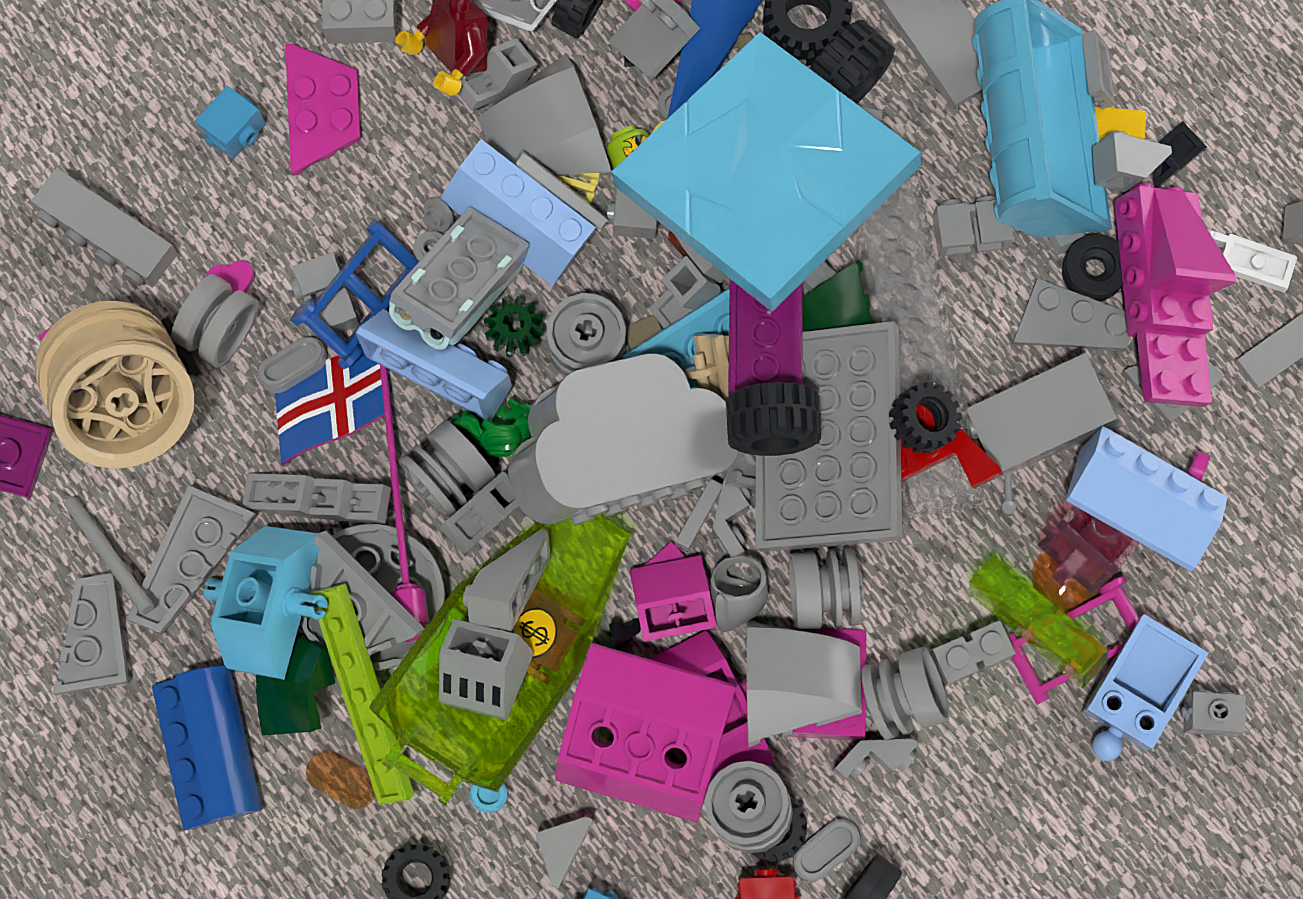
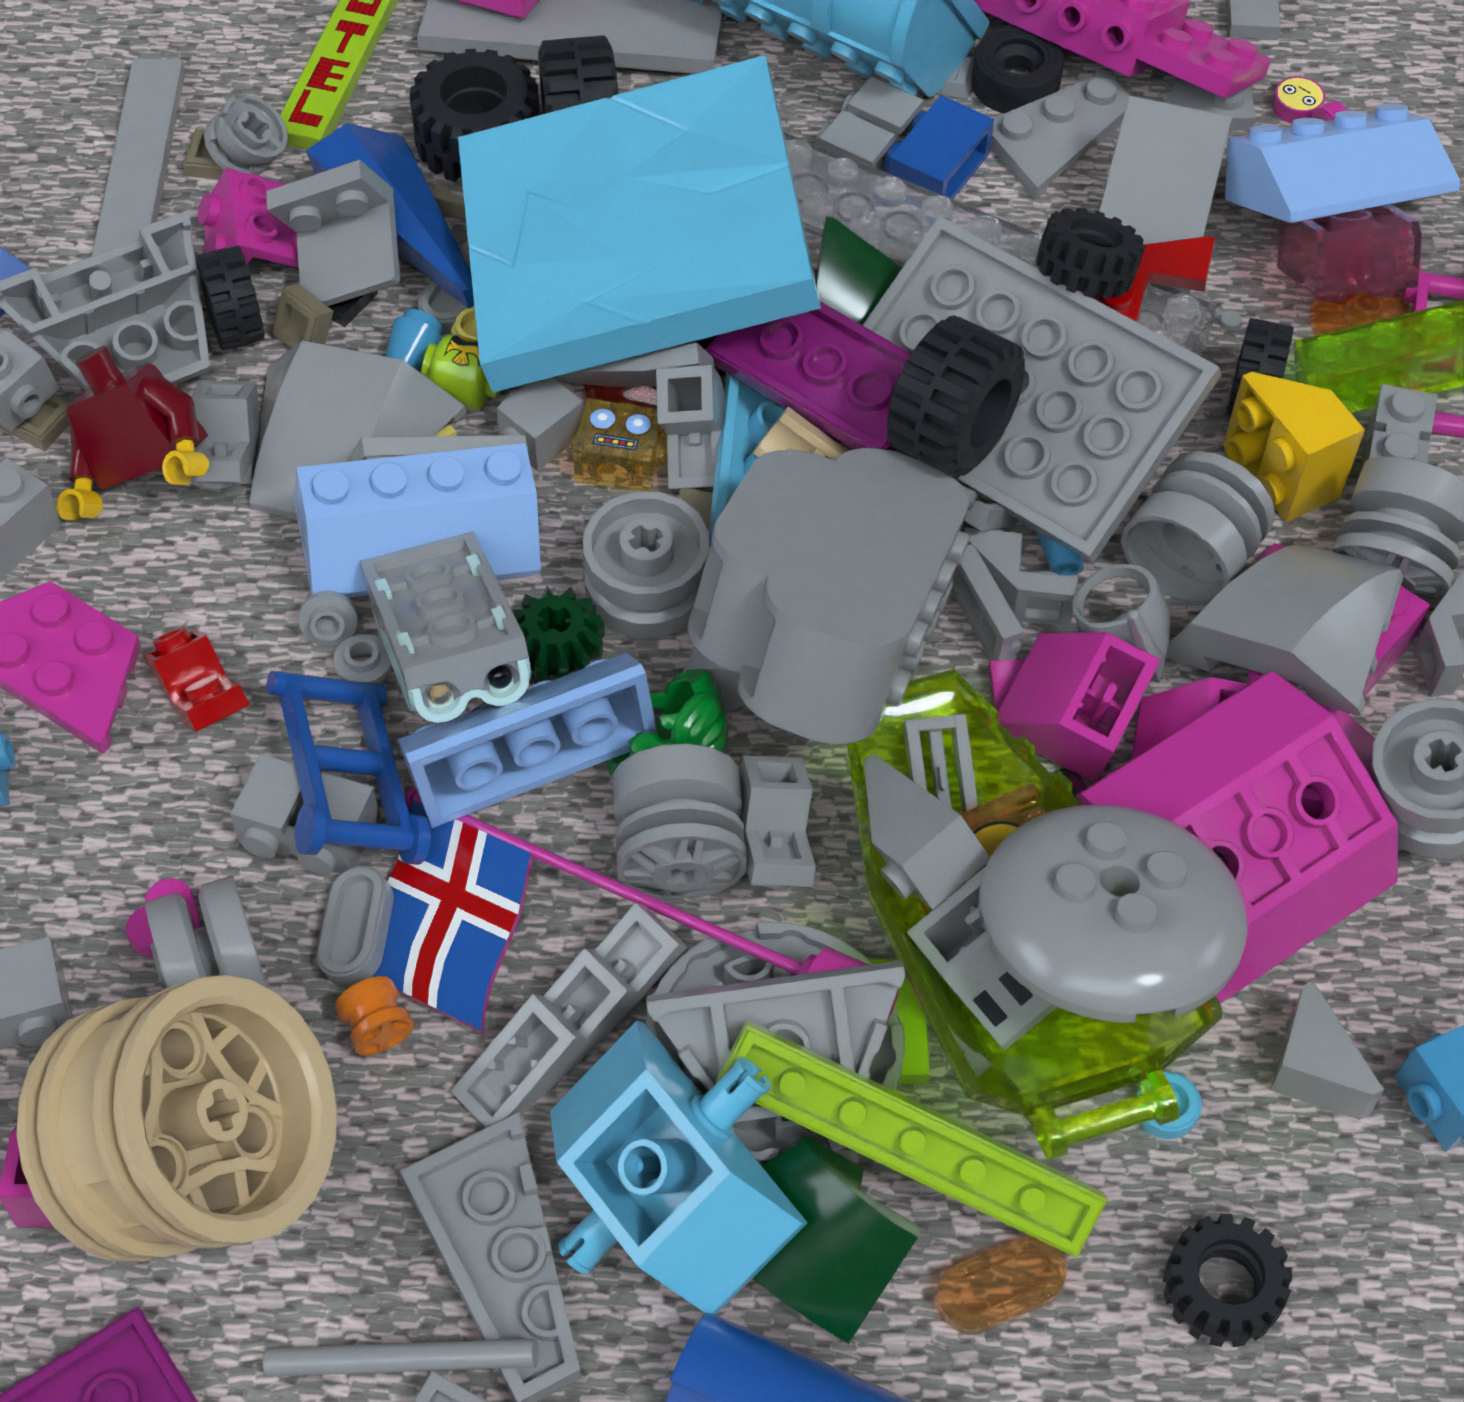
camera: 50 degrees left, 20 degrees down
(252, 412) = (374, 1015): none -> orange wheel
(358, 183) = (194, 678): none -> red slope
(494, 736) = (1113, 912): none -> light grey brick
(590, 548) = (962, 751): none -> light grey tile
(600, 48) = (301, 317): none -> dark tan tile
(632, 111) = (412, 336): none -> dark azure cone
(649, 262) = (618, 446): none -> clear yellow head
(924, 601) = (1293, 441): none -> yellow slope
(964, 549) = (1263, 352): none -> black tyre
(990, 273) = (942, 148): none -> blue brick
(1210, 435) = (1297, 98): none -> tile

